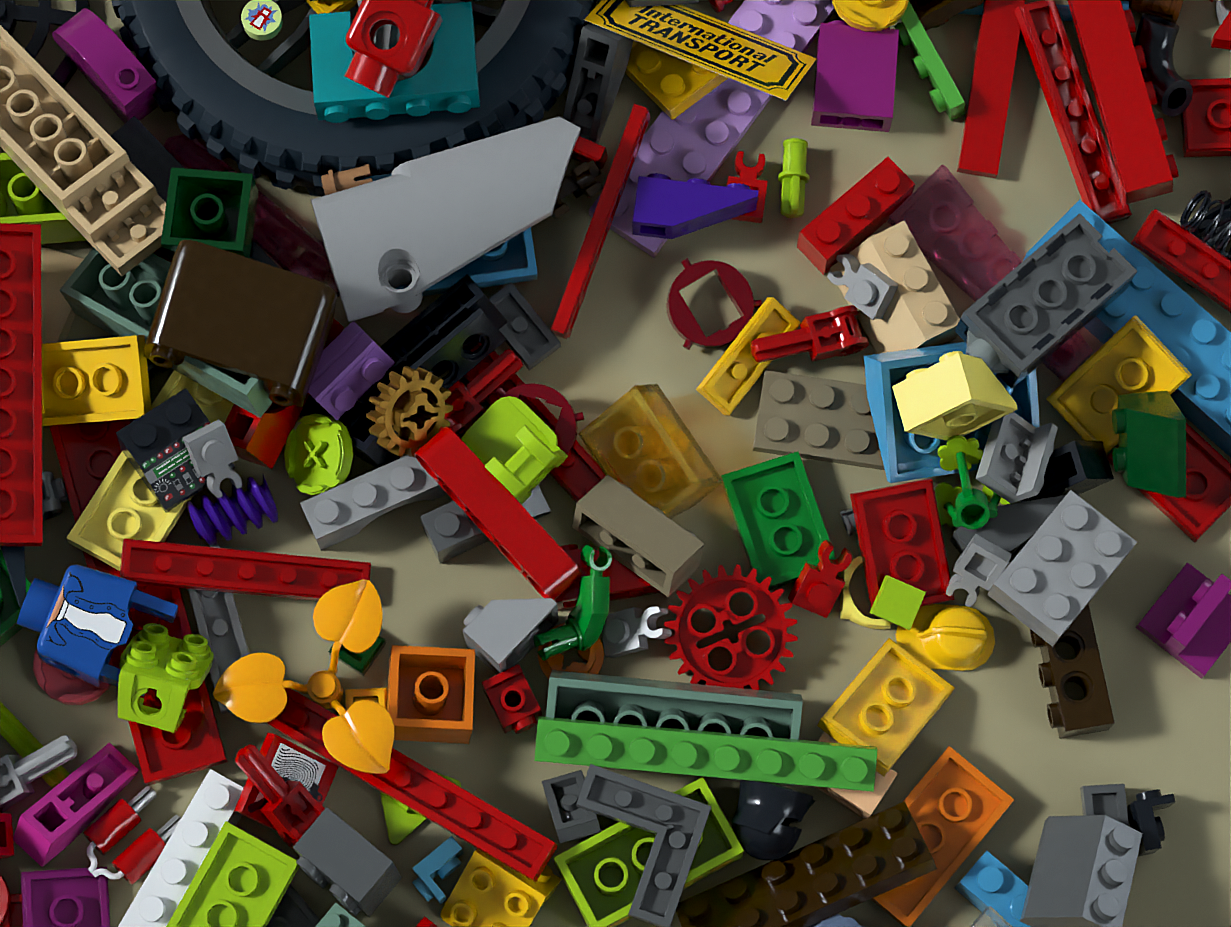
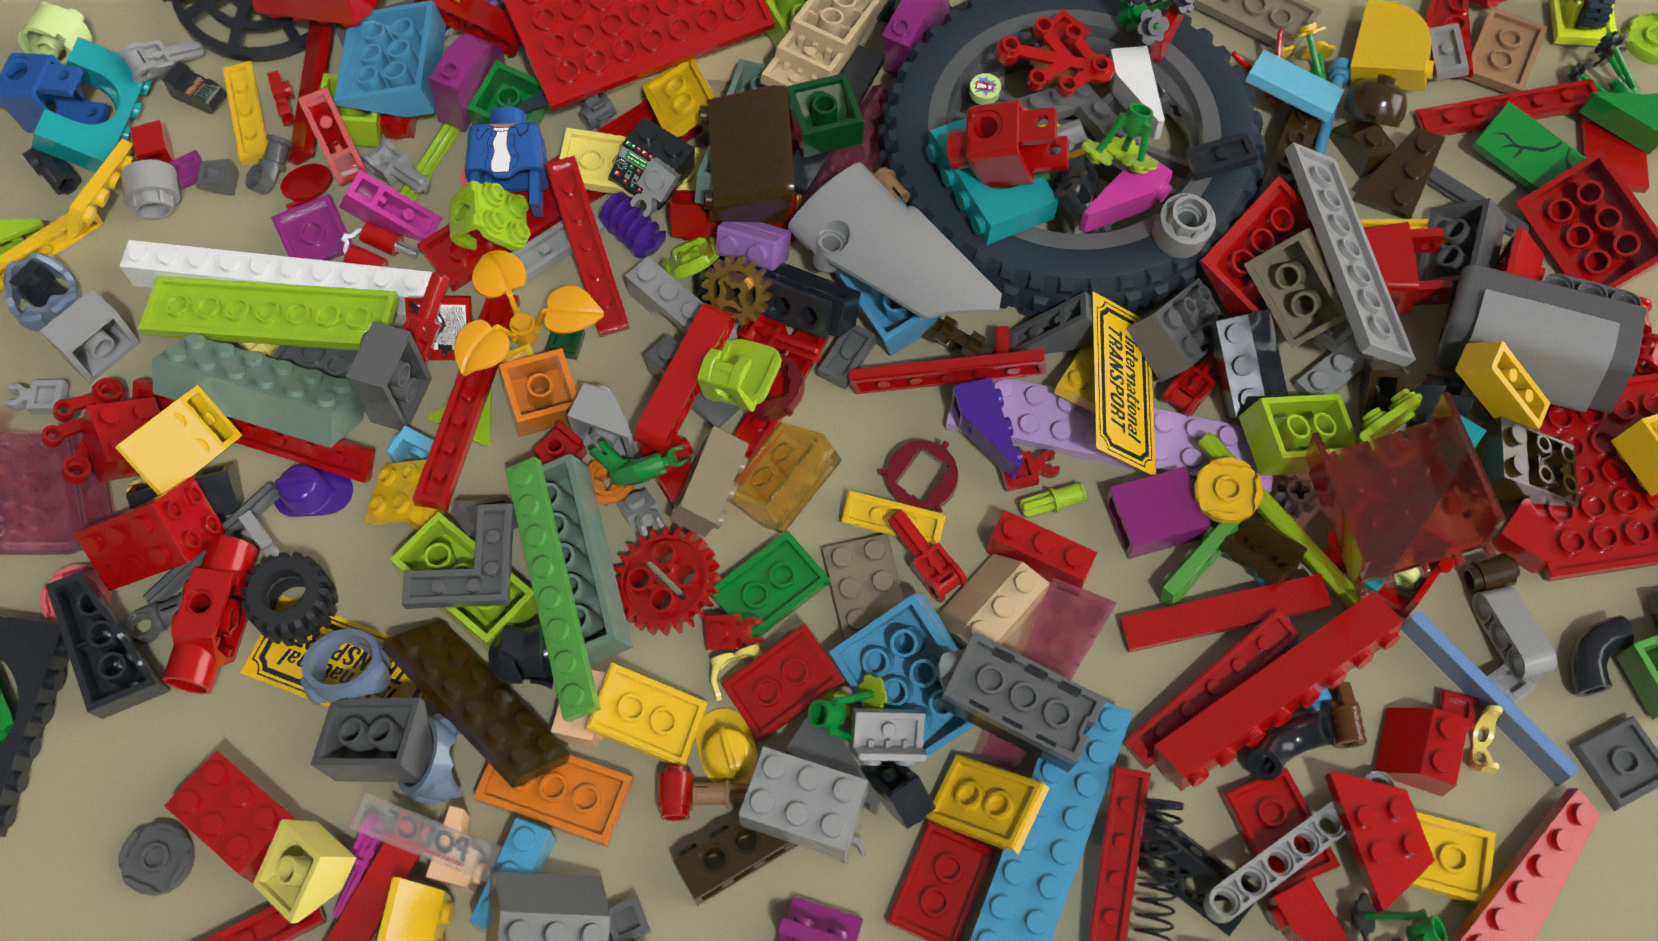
camera: 70 degrees right, 10 degrees down
(868, 286) = (984, 579): light grey plate -> none
(897, 602) = (734, 694): lime tile -> none
(951, 397) = (903, 655): light yellow slope -> none
(978, 567) = (782, 736): light grey plate -> none
(983, 707) = (675, 793): none -> red brick
(1001, 654) = (718, 793): none -> medium nougat axle
(1151, 443) = (943, 838): dark green slope -> none

